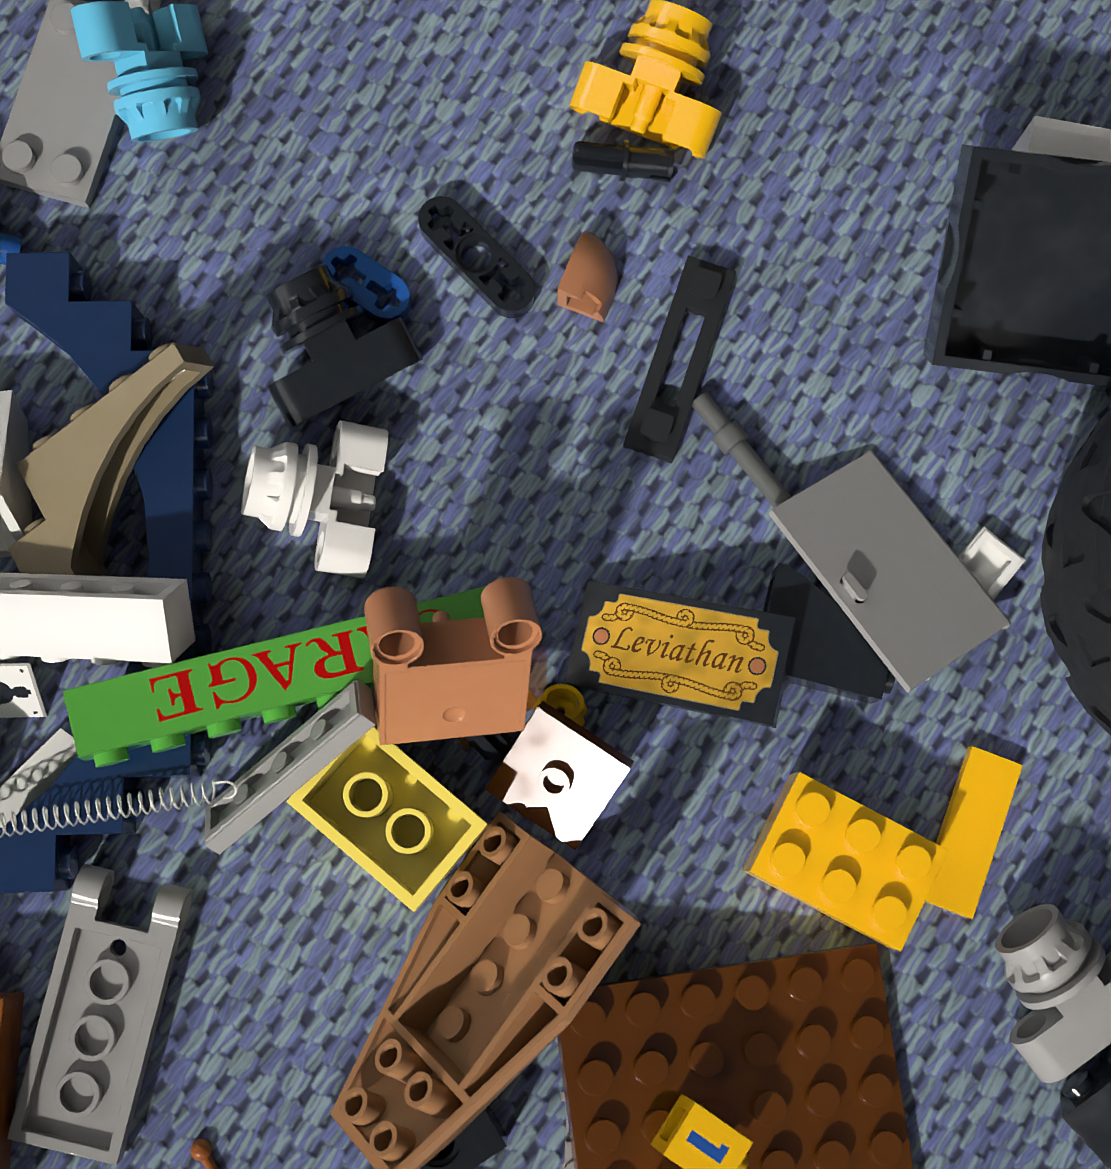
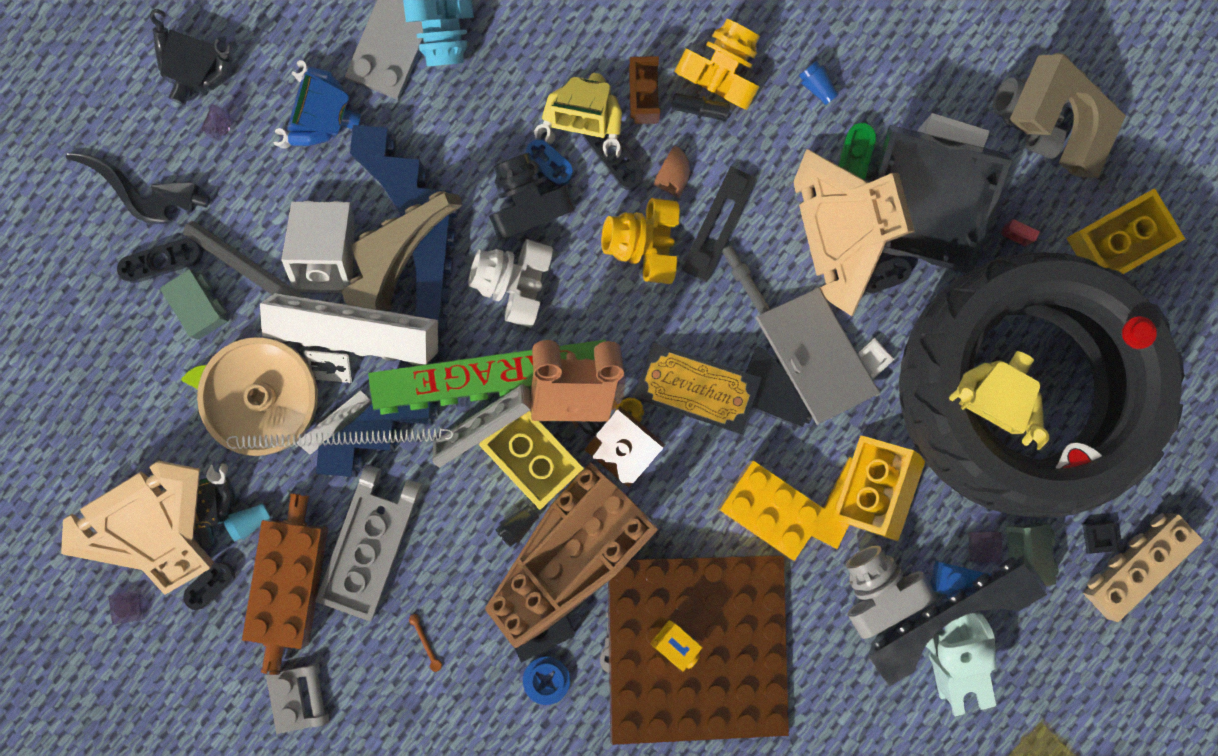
camera: 10 degrees right, 5 degrees up
(375, 947) = (516, 526): none -> black cone
(417, 182) = (583, 108): none -> light yellow torso
(520, 139) = (644, 89): none -> reddish brown window
(531, 392) = (632, 236): none -> yellow beam
(822, 97) = (818, 82): none -> blue cone
(903, 227) = (858, 149): none -> green plate
(914, 329) = (848, 224): none -> tan plate
(978, 406) = (888, 282): none -> black beam
(1056, 797) = (893, 483): none -> yellow slope

